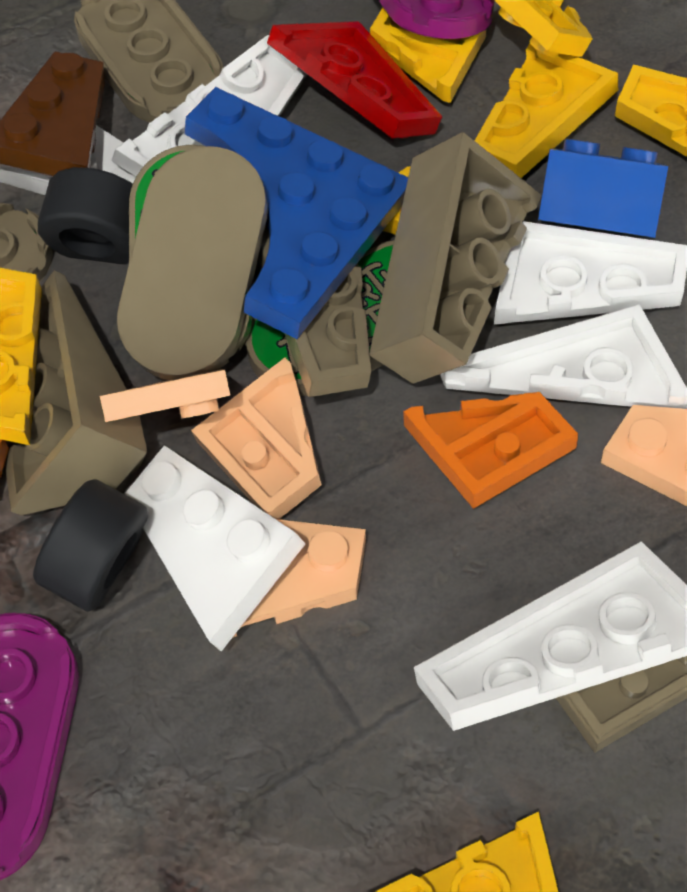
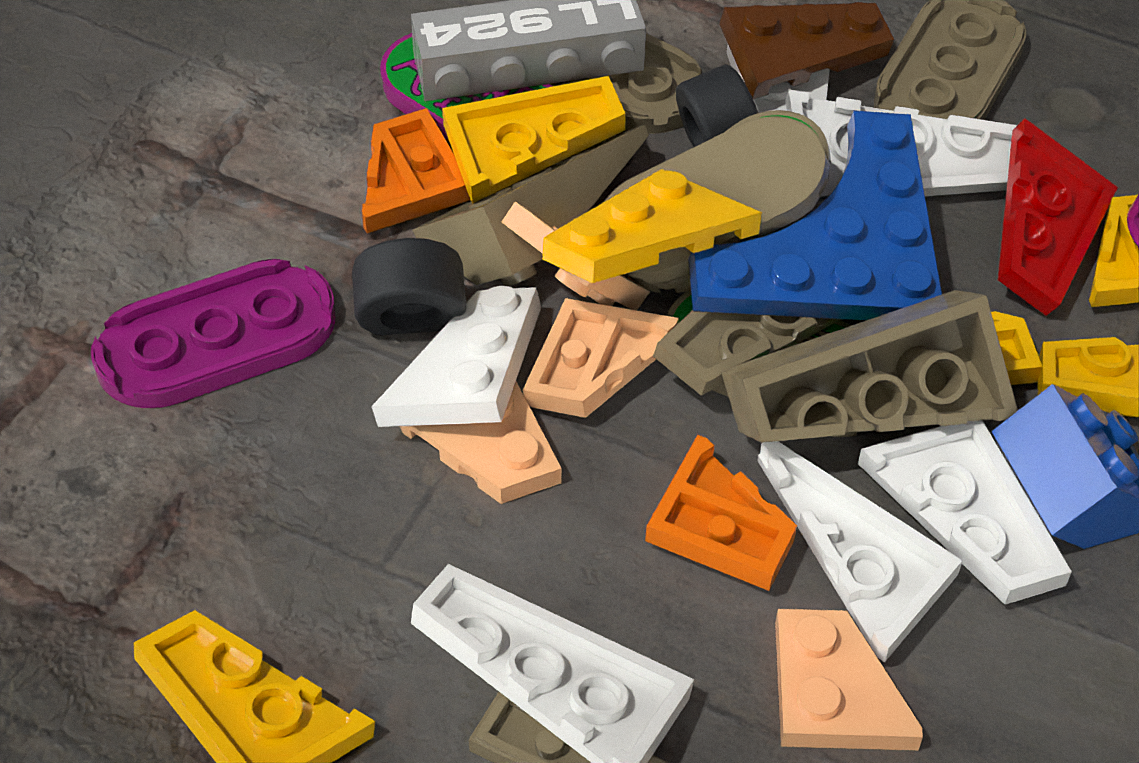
camera: 55 degrees right, 5 degrees down
(210, 314) = (644, 221): none -> yellow wing

